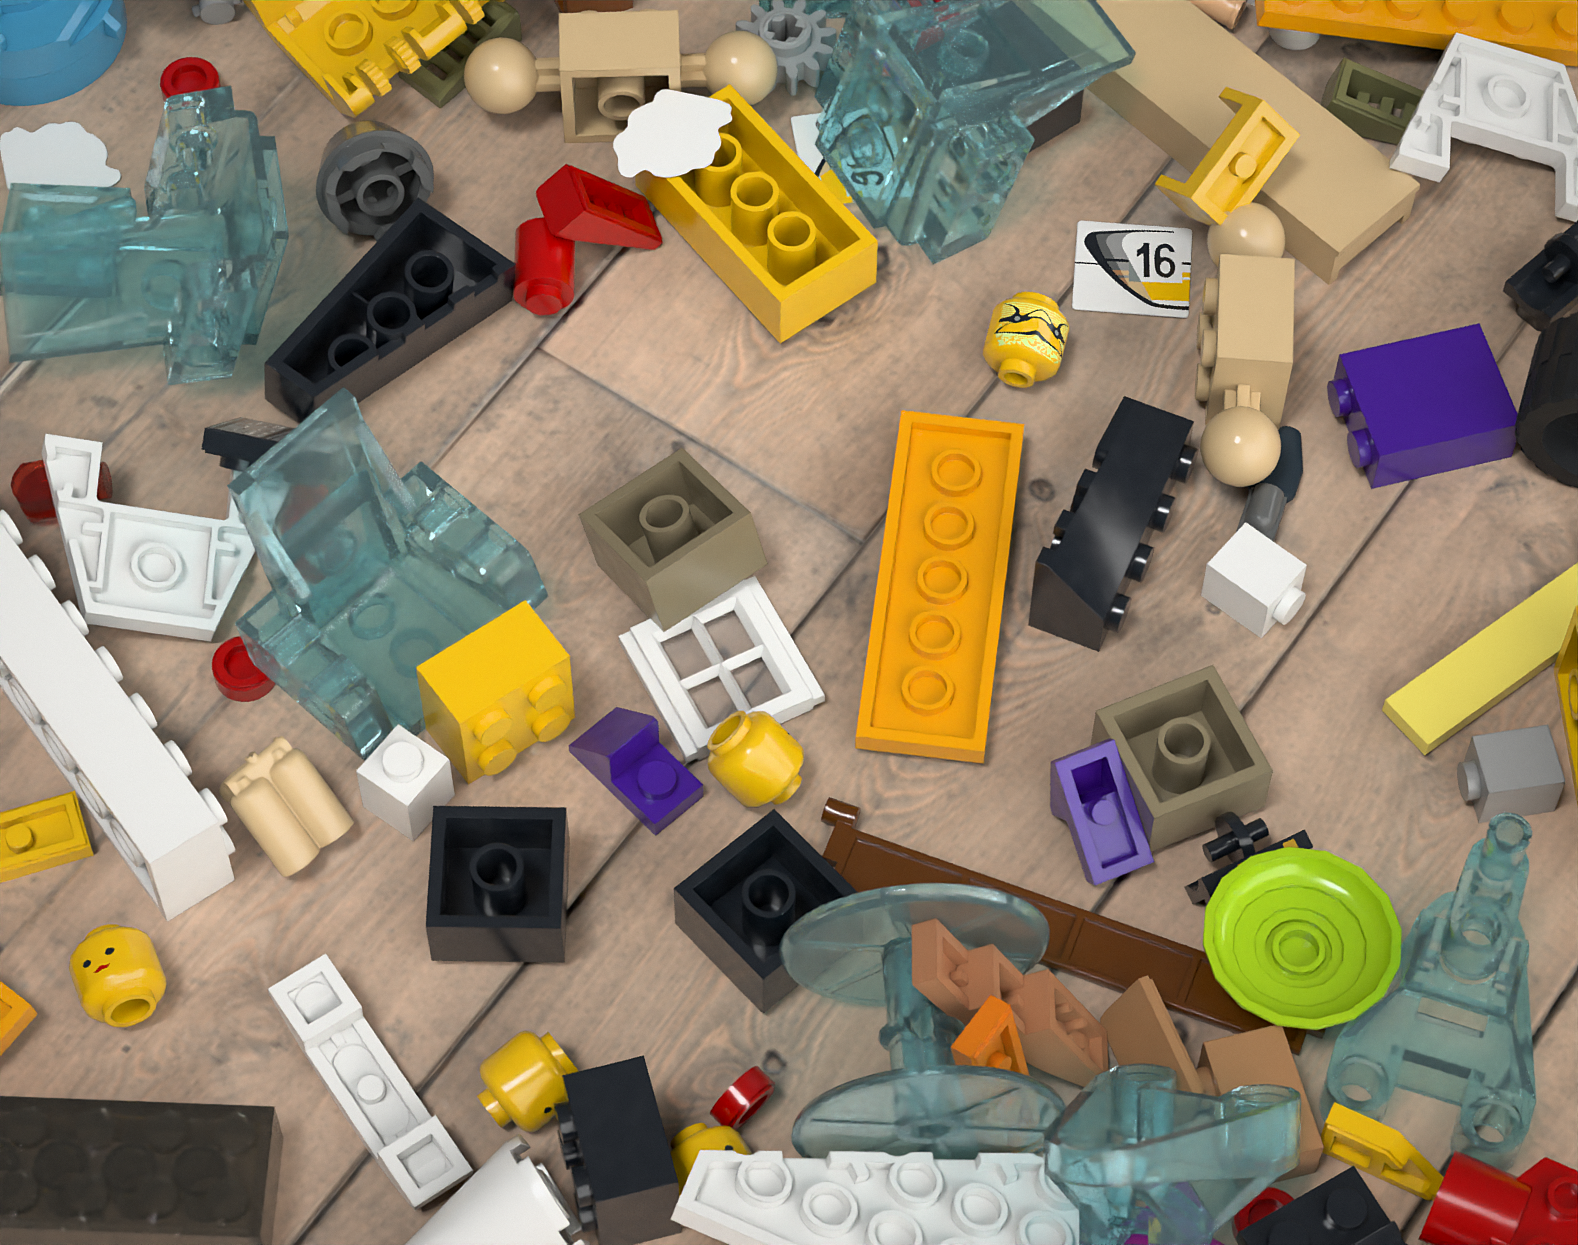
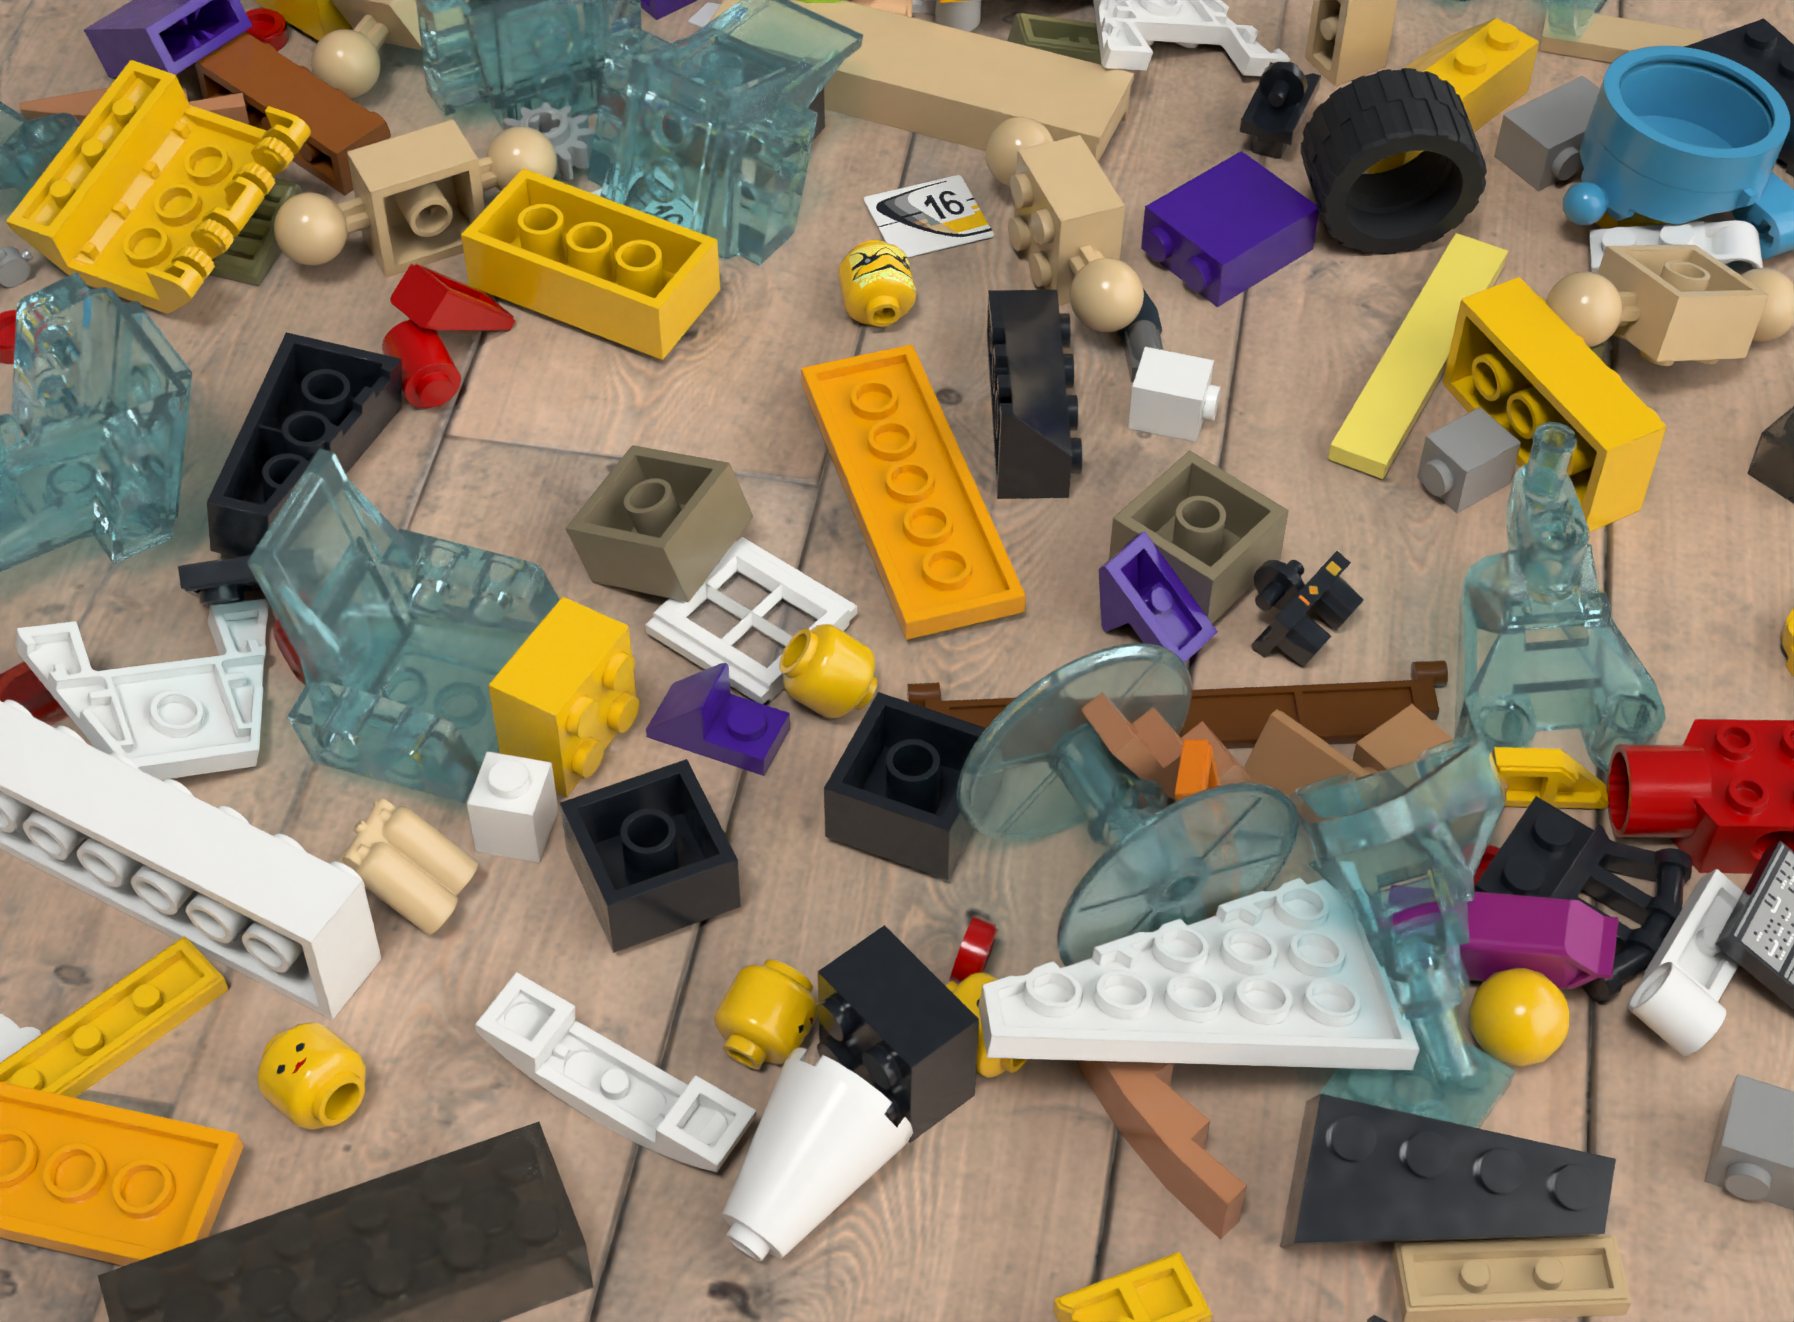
camera: 25 degrees left, 10 degrees down
(237, 675) = (298, 780): red tile -> none
(371, 177) = (230, 340): dark grey cone -> none
(671, 134) = (492, 218): white sticker -> none
(1235, 163) = (989, 91): yellow panel -> none
(1302, 938) = (1390, 631): lime hat -> none

